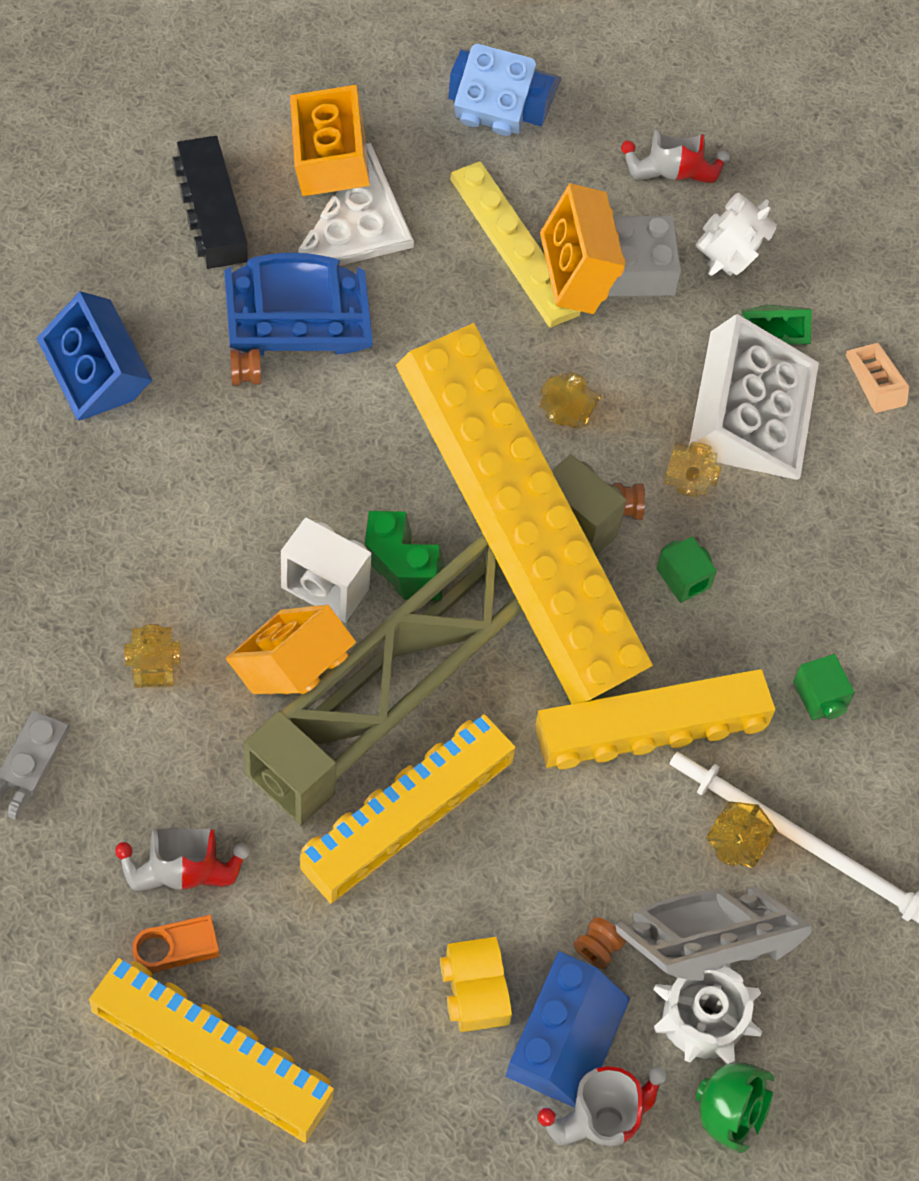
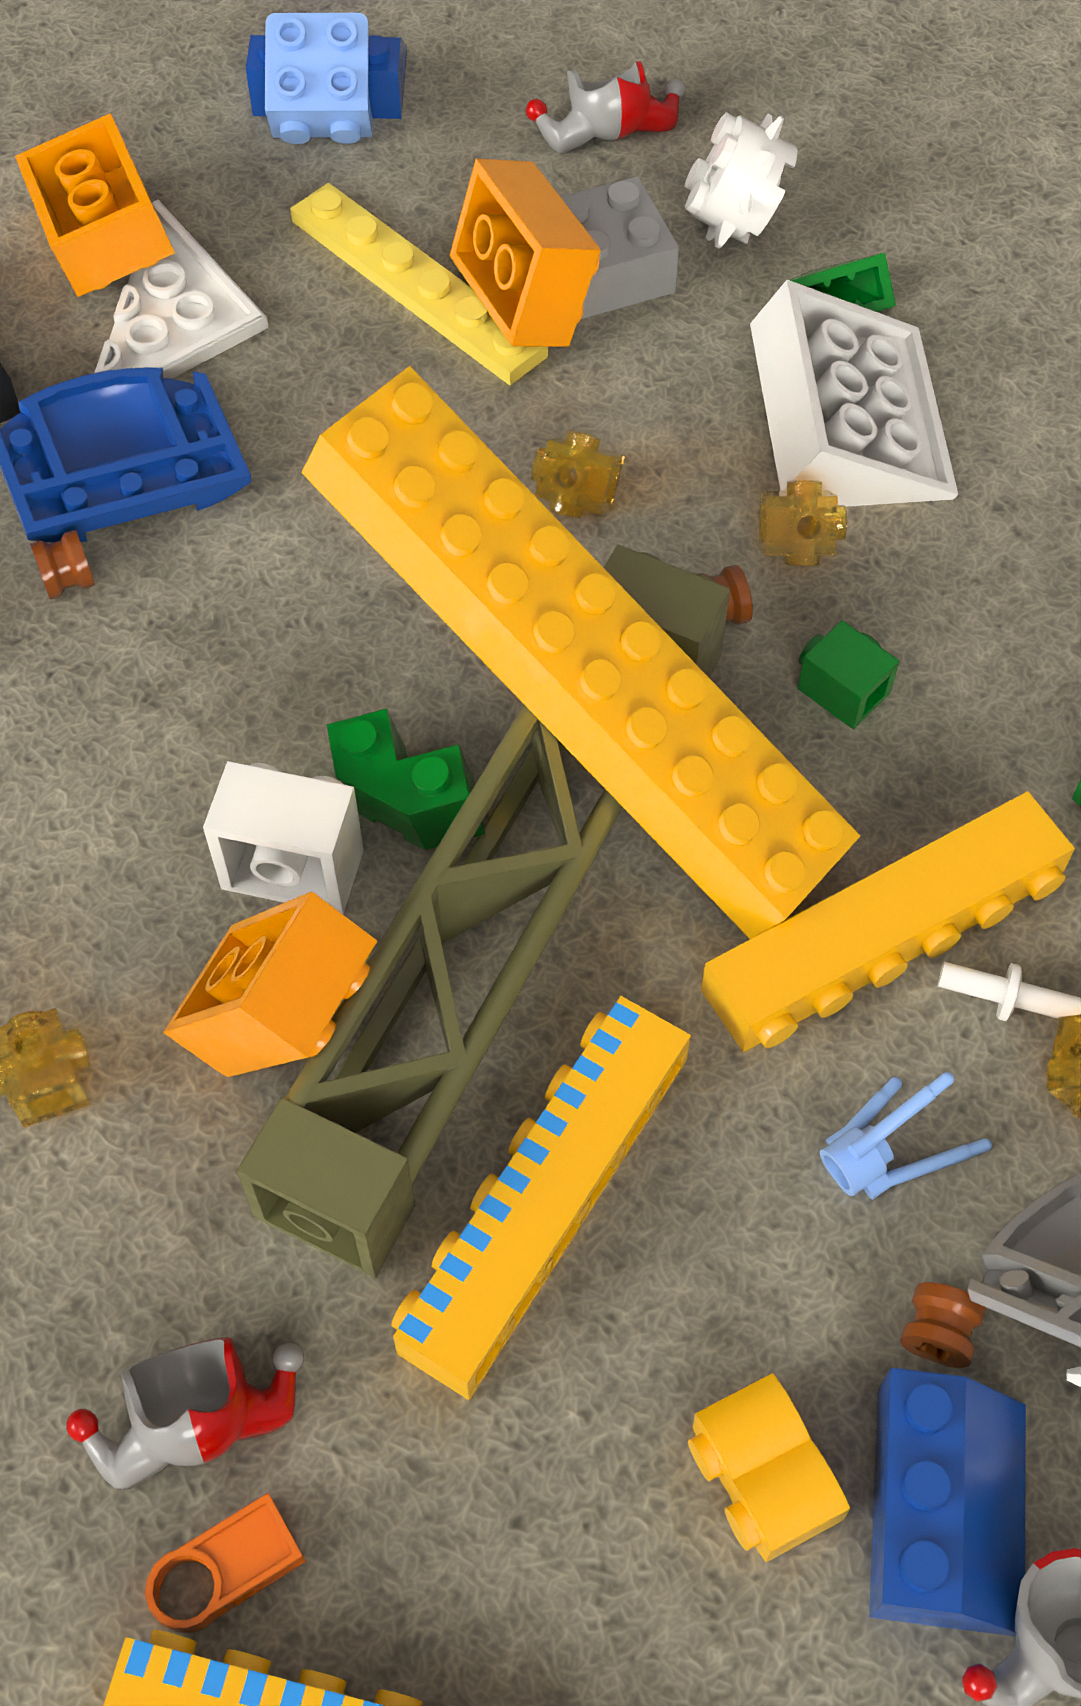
camera: 10 degrees left, 0 degrees up
(589, 840) = (859, 1153): none -> light blue plant
(882, 396) = (1026, 349): light nougat slope -> none

